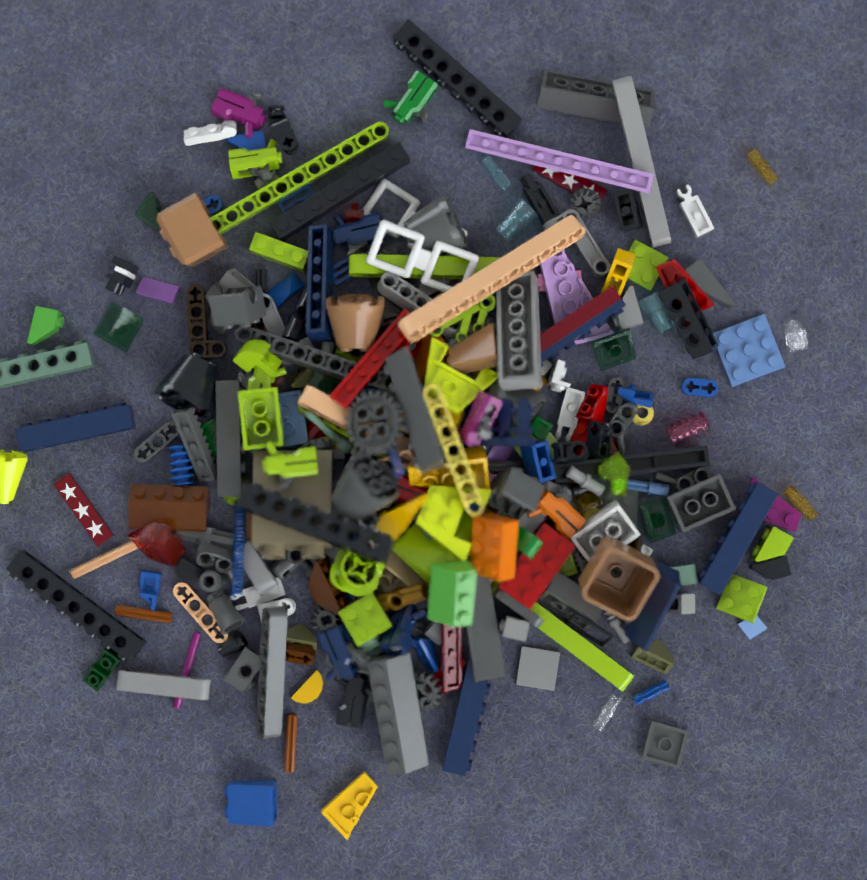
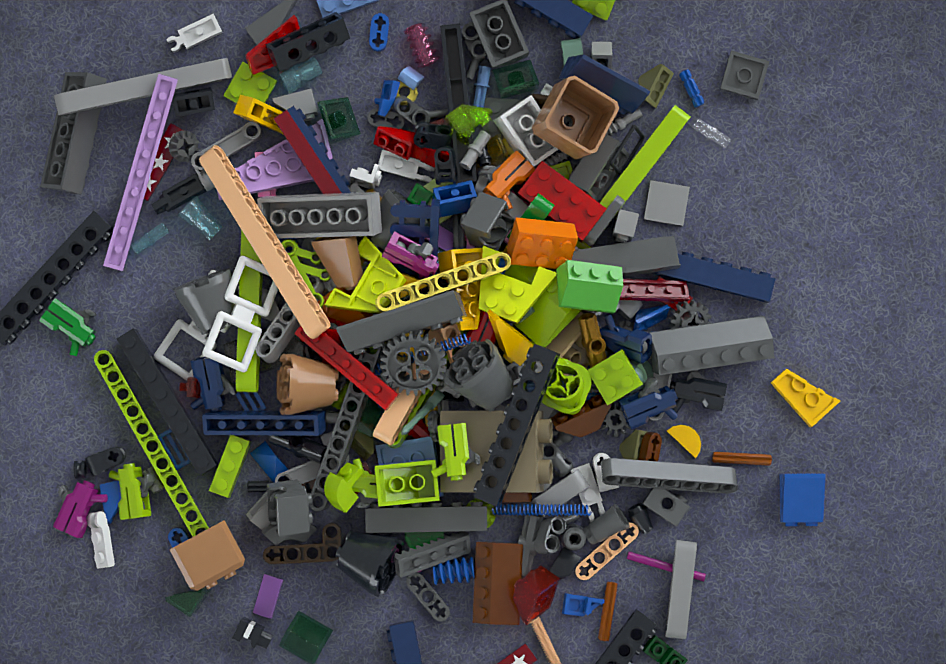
camera: 85 degrees left, 0 degrees up
(656, 418) = (410, 77): none -> light blue slope

